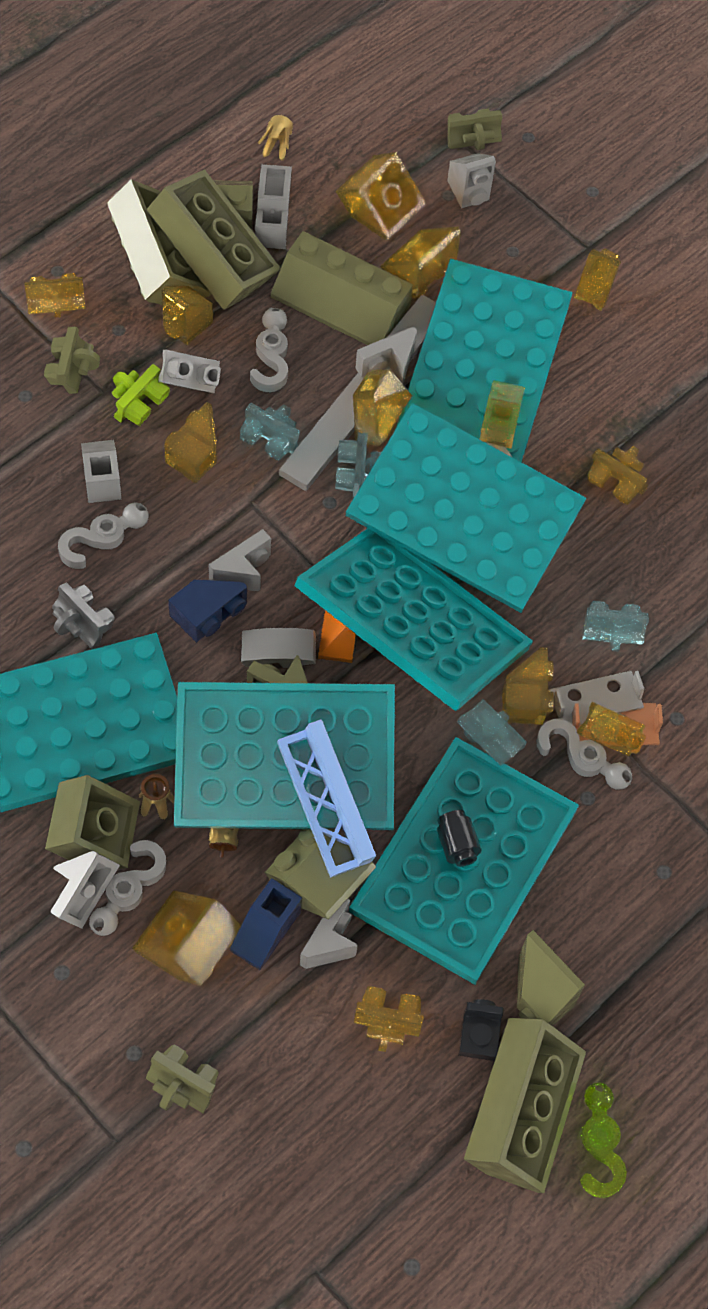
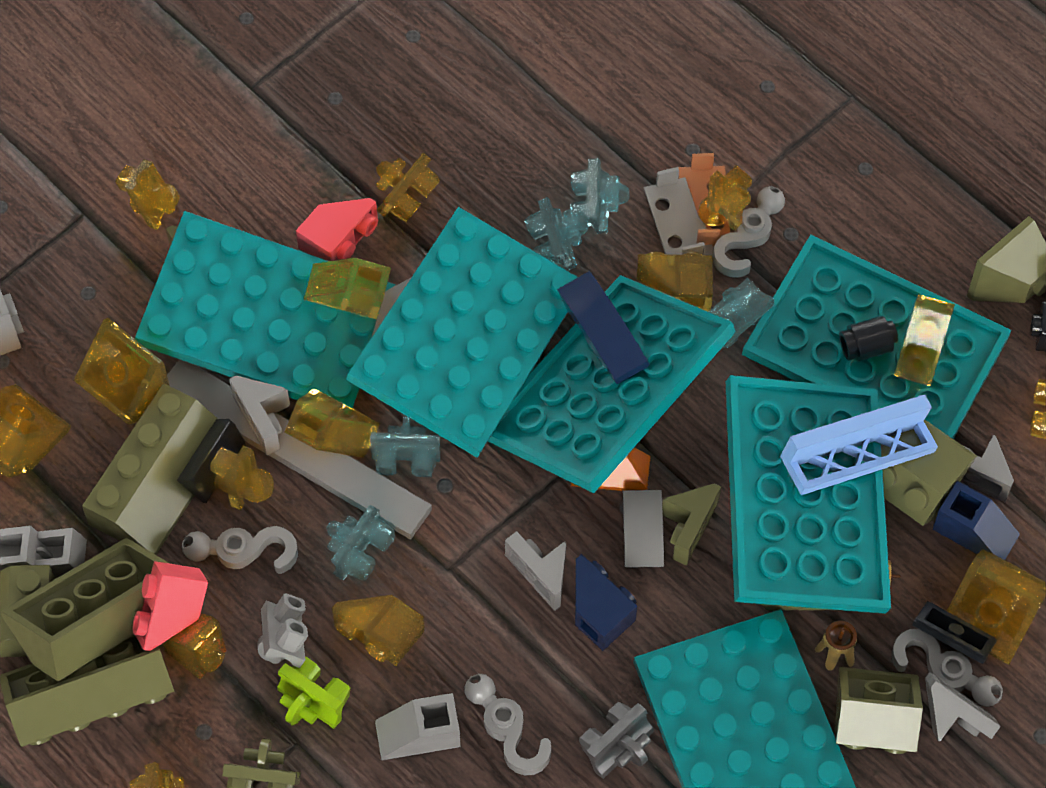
camera: 85 degrees left, 0 degrees up
(156, 892) = (955, 632): none -> black slope
(209, 280) = (170, 604): none -> coral slope
(328, 340) = (240, 477): none -> clear yellow hips
(348, 327) = (197, 474): none -> black slope
(459, 888) = (924, 340): none -> clear yellow slope
(463, 606) = (603, 327): none -> dark blue slope
(571, 419) = (336, 228): none -> coral slope
(572, 590) = (559, 231): none -> clear light blue hips

